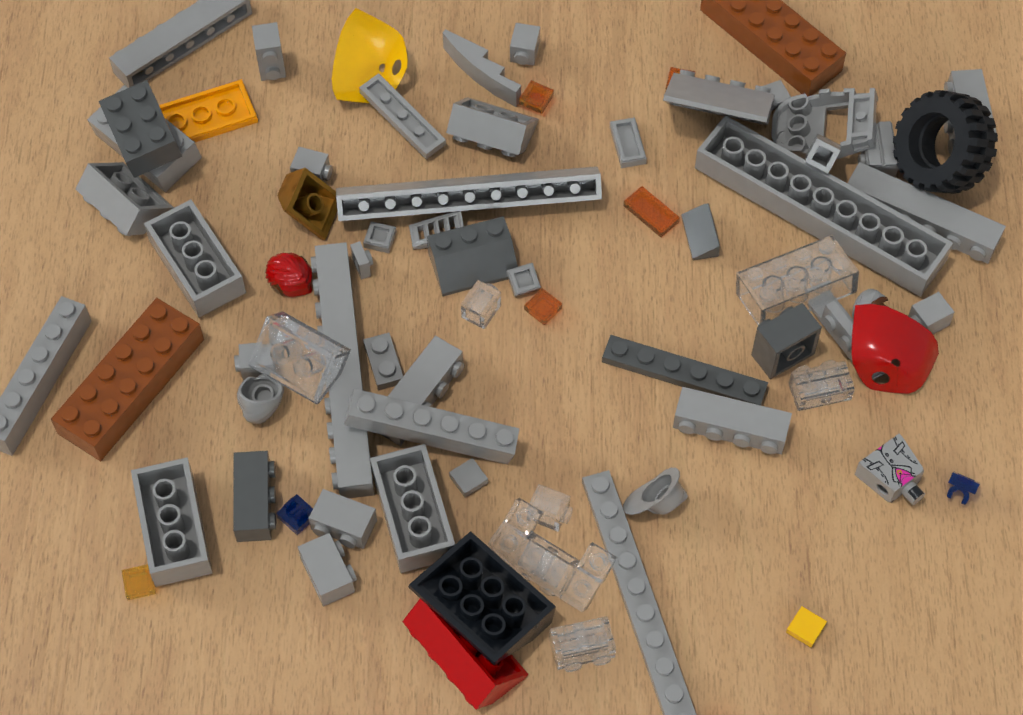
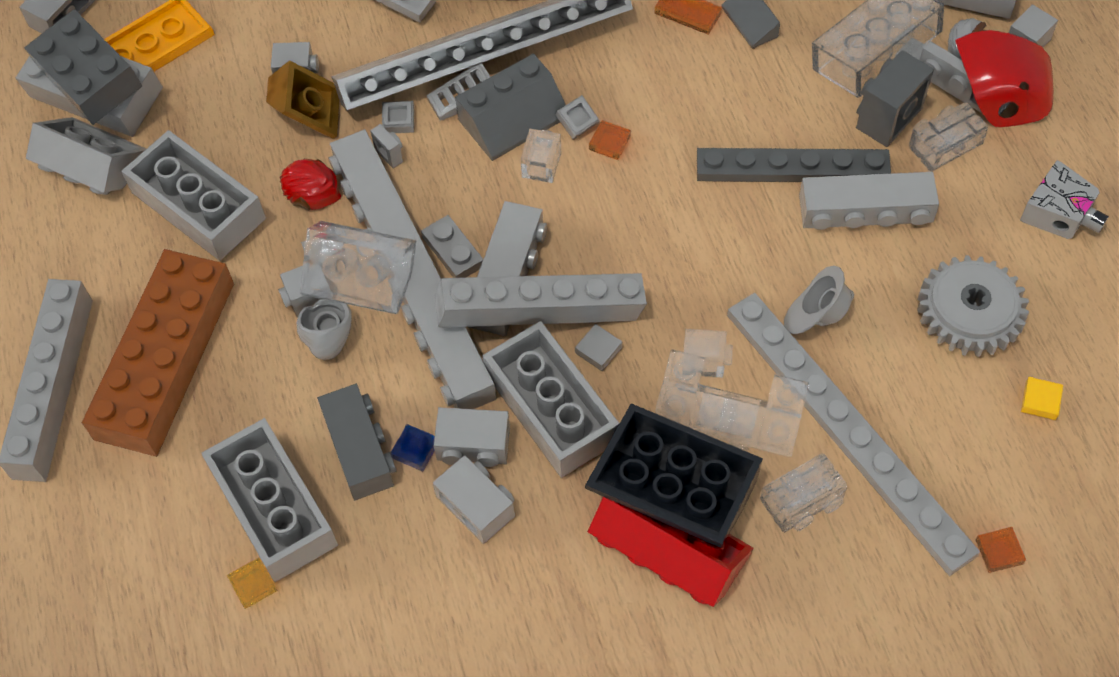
camera: 15 degrees left, 0 degrees up
(777, 553) = (973, 305): none -> light grey gear

